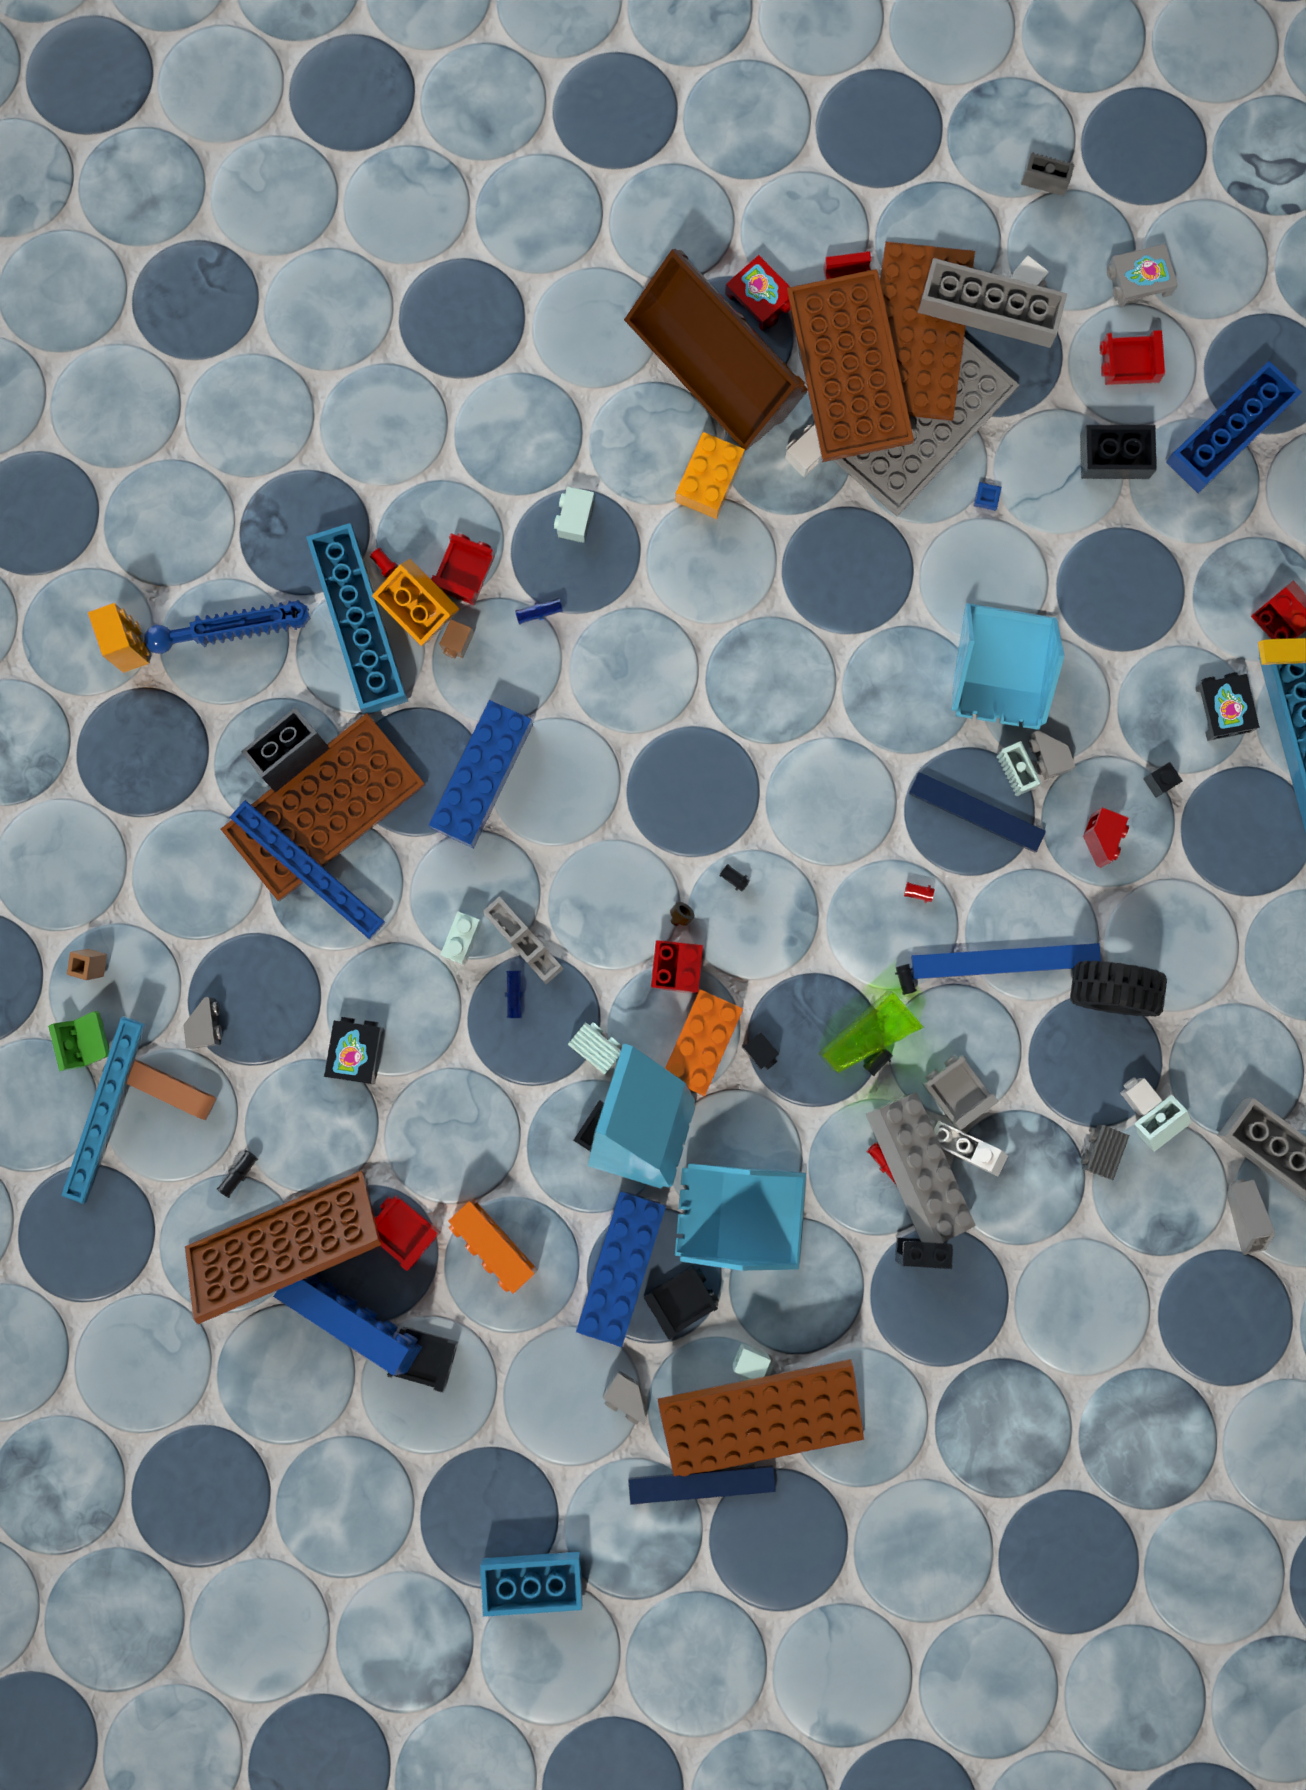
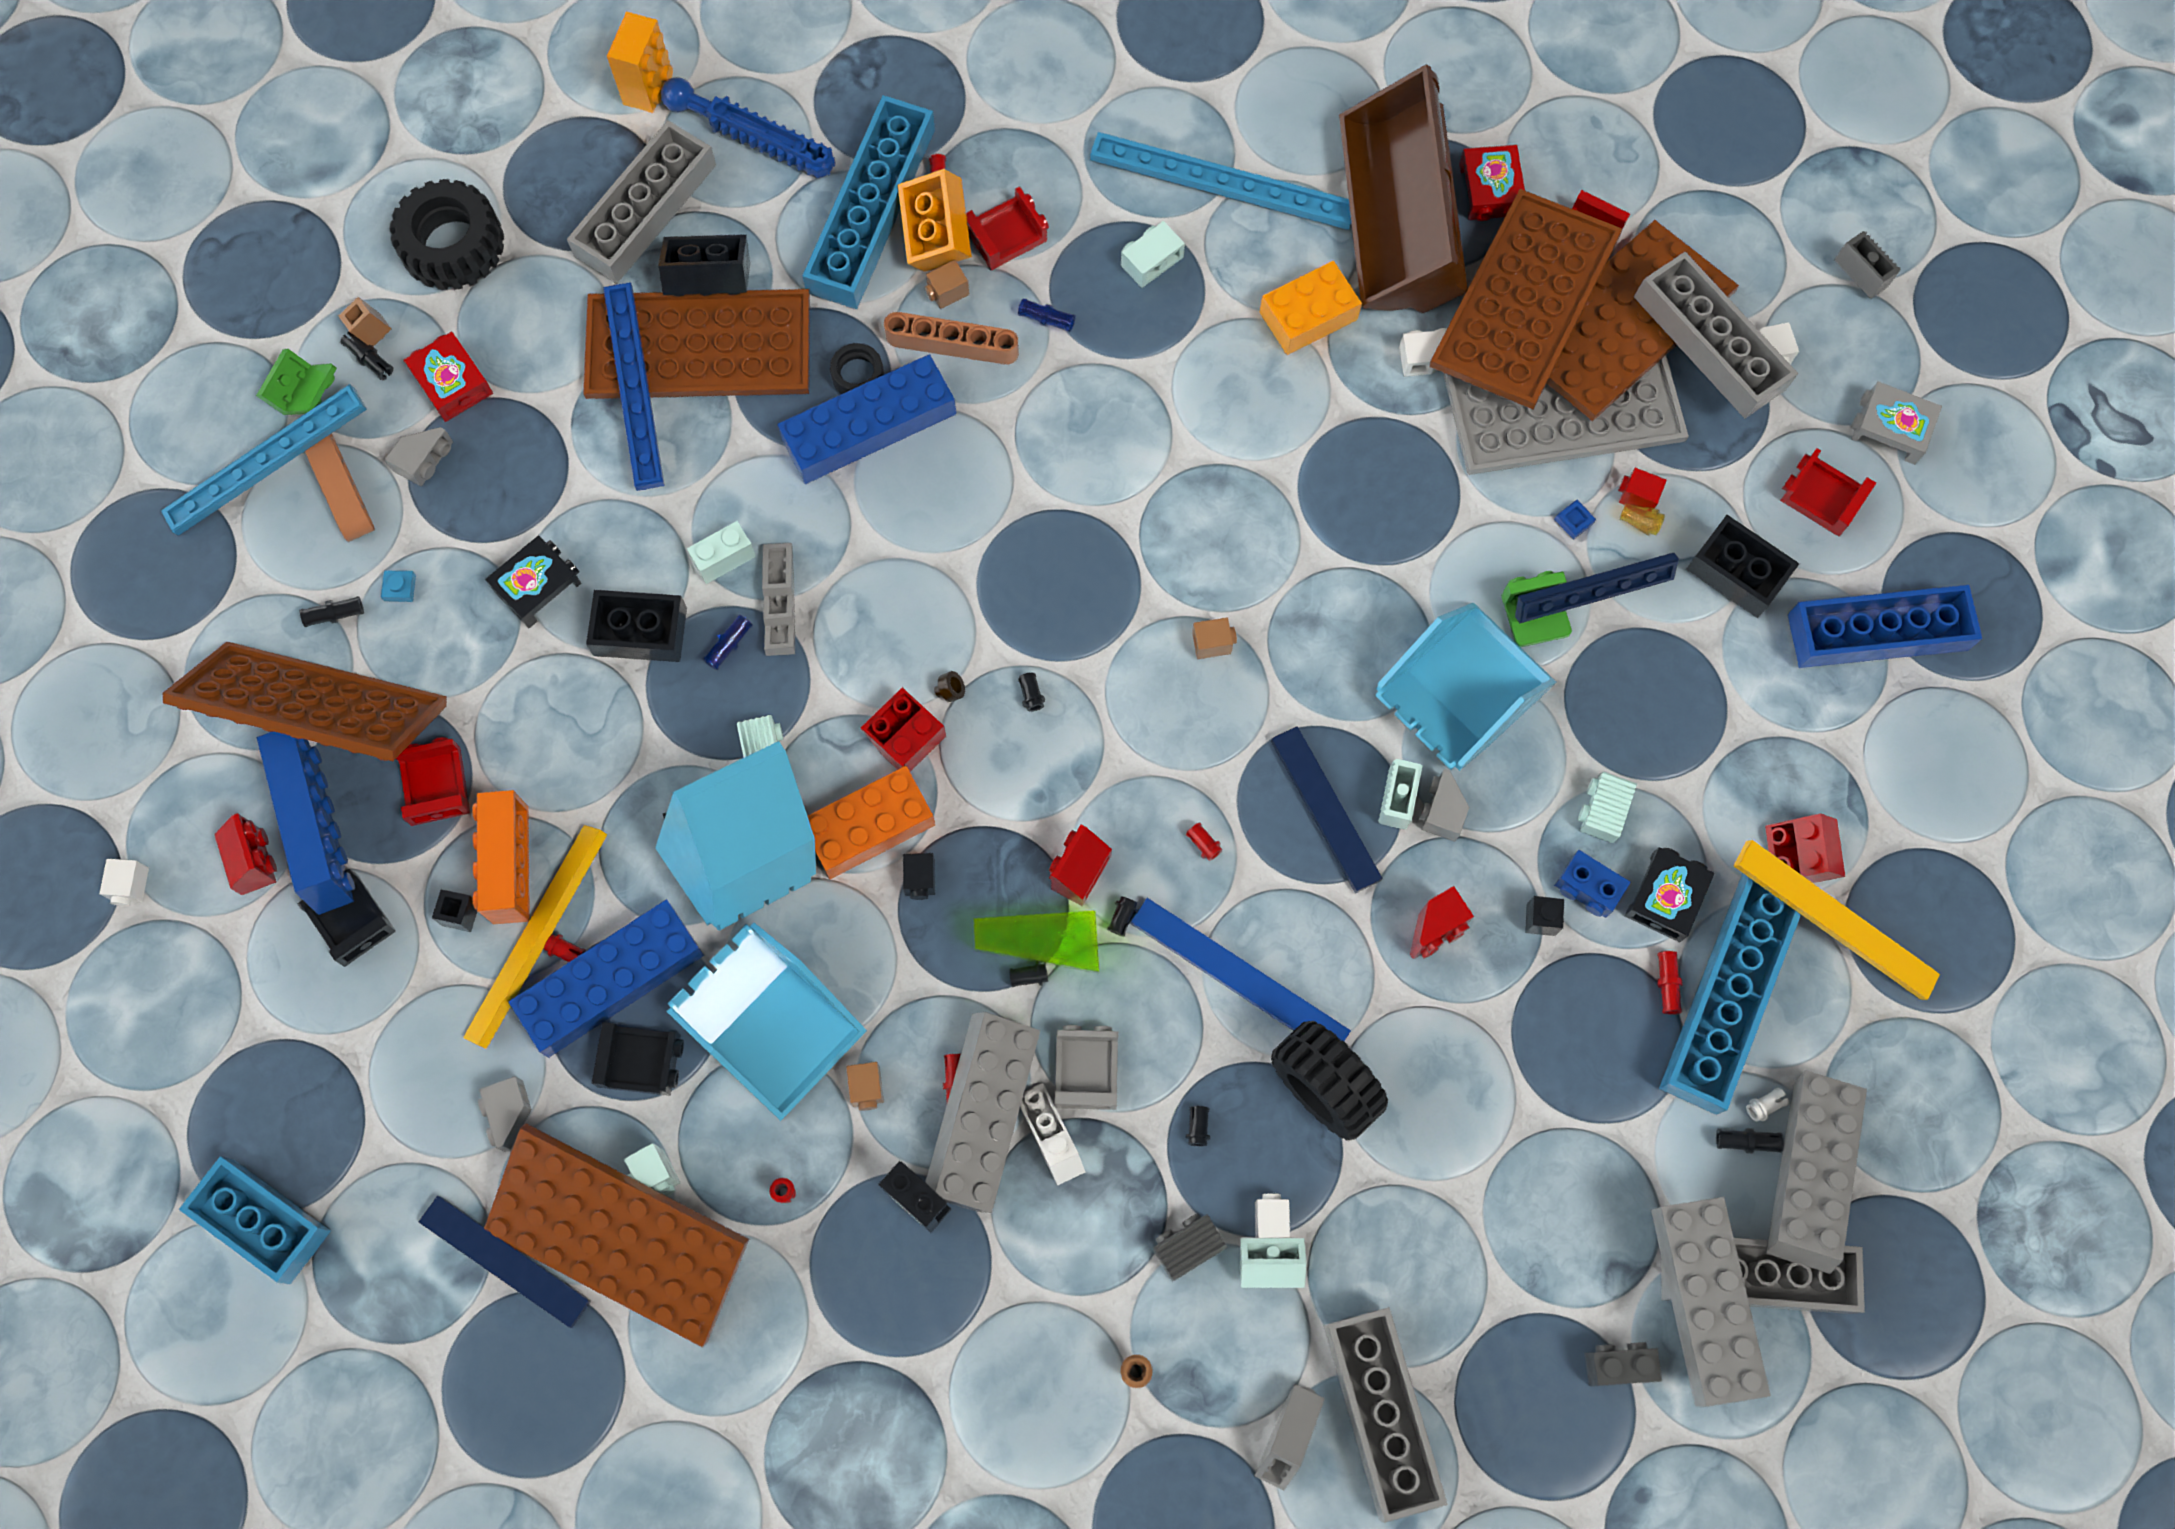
camera: 35 degrees right, 10 degrees down
(64, 843) = (441, 204): none -> black tyre
(106, 985) = (367, 356): none -> black pin
(174, 957) = (448, 376): none -> red panel
(202, 735) = (642, 201): none -> light grey brick
(260, 1449) = (124, 881): none -> white brick
(265, 1122) = (398, 586): none -> dark azure plate
(324, 1372) = (245, 855): none -> red slope
(435, 731) = (849, 353): none -> black tyre
(448, 1030) = (636, 625): none -> black brick
(490, 1301) = (455, 911): none -> black brick
(496, 665) = (941, 329): none -> nougat beam
(552, 1277) = (535, 936): none -> yellow tile
(577, 1271) = (561, 948): none -> red pin
(579, 425) = (1221, 180): none -> dark azure plate
(822, 753) = (1213, 638): none -> medium nougat brick
(834, 1208) = (865, 1085): none -> medium nougat brick
(840, 1316) = (775, 1191): none -> red pin
(857, 968) = (1080, 865): none -> red slope
(1010, 579) = (1541, 629): none -> bright green bracket
(1016, 445) = (1641, 489): none -> red brick
(1031, 464) = (1643, 518): none -> clear yellow cone
(1038, 536) = (1596, 587): none -> dark blue tile
(1053, 1074) = (1198, 1126): none -> black pin
(1138, 1251) = (1146, 1375): none -> medium nougat cone
(1148, 678) = (1607, 806): none -> light aqua brick
(1175, 736) = (1592, 884): none -> blue brick
(1266, 764) = (1669, 983): none -> red pin

